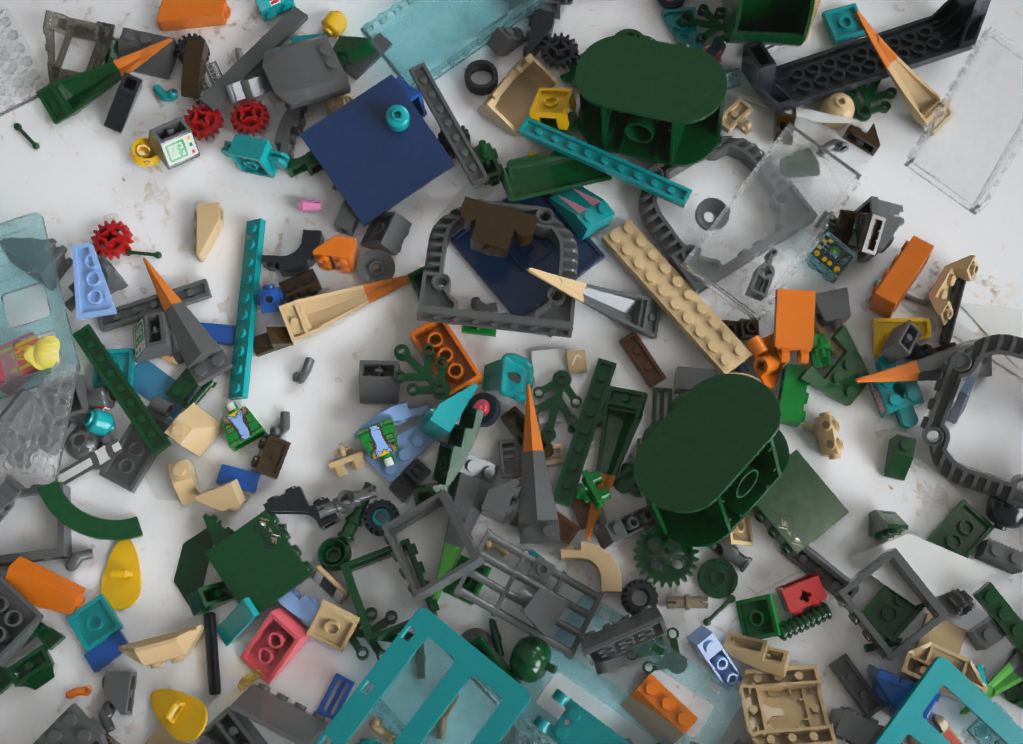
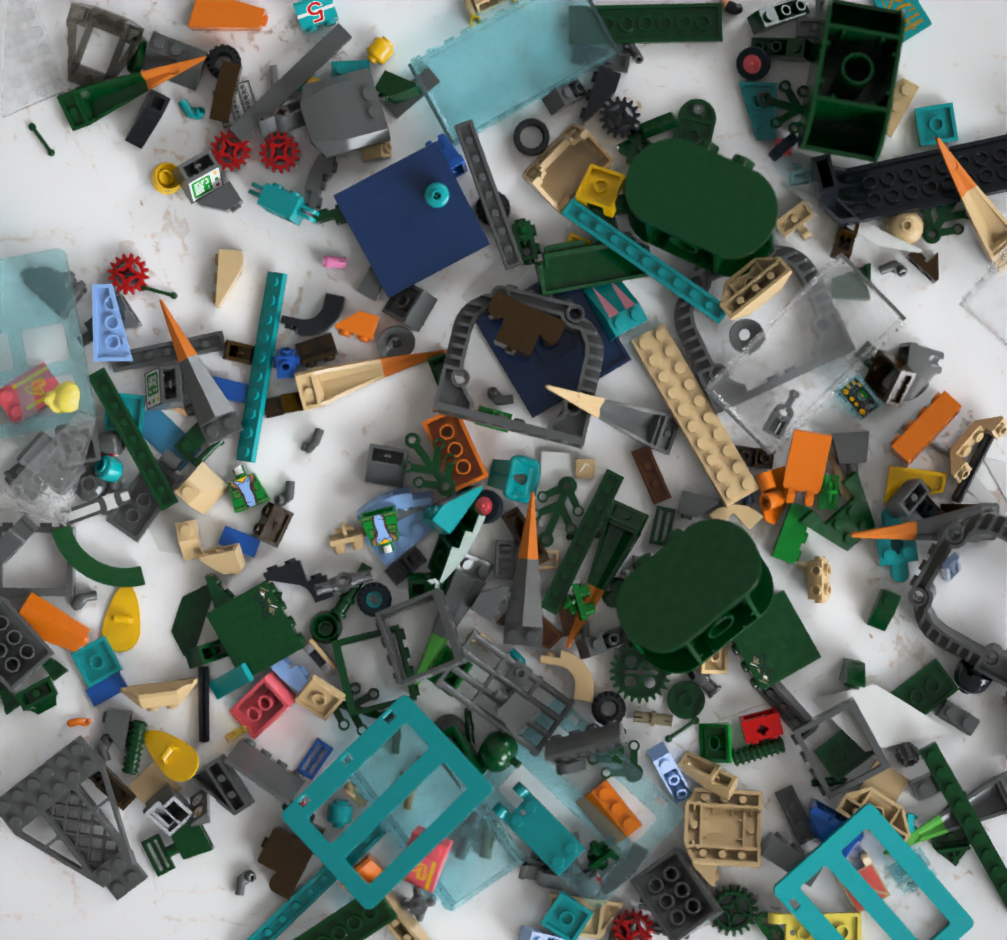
camera: 10 degrees right, 15 degrees up
(139, 711) = (134, 747): none -> dark green piece
(197, 163) = (222, 199): none -> dark grey slope
(222, 296) = (238, 352): none -> dark brown slope
(718, 164) = (749, 291): none -> tan wedge

